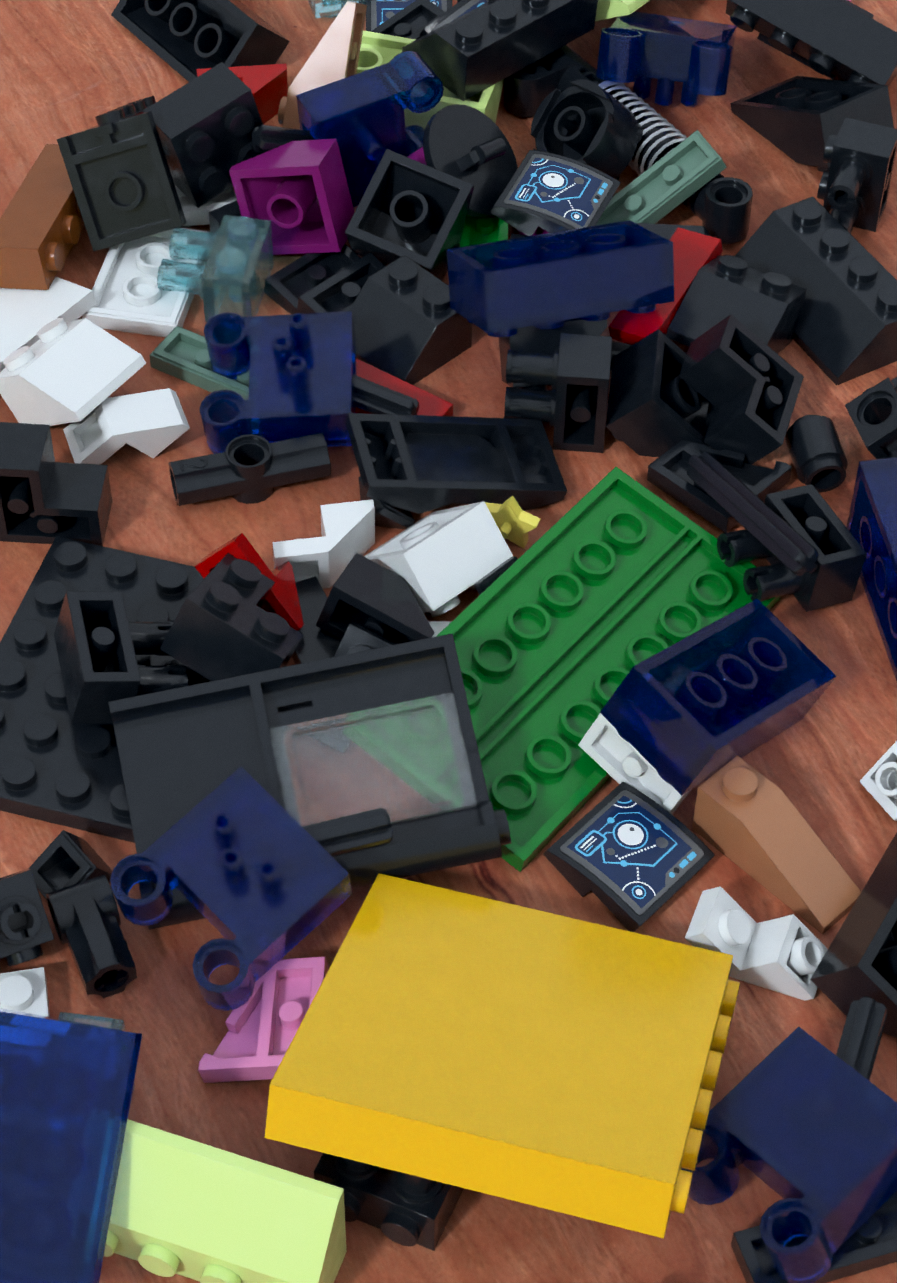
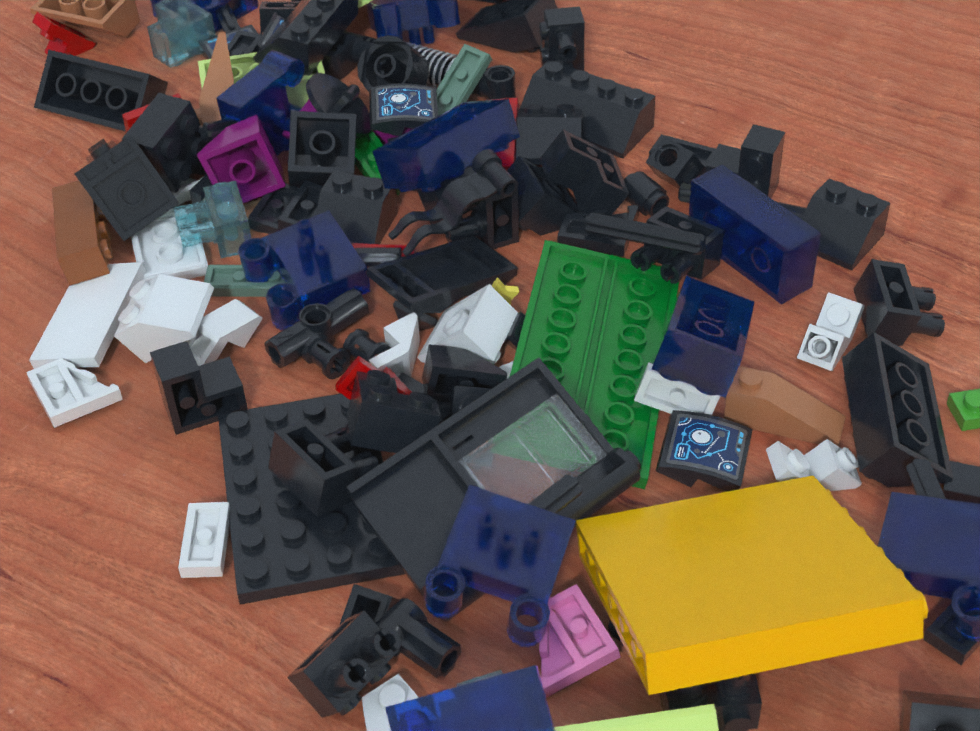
camera: 25 degrees left, 5 degrees down
(240, 511) = (326, 356): none -> black bush
(292, 515) = (367, 348): none -> black bush
(573, 351) = (486, 180): none -> black flag

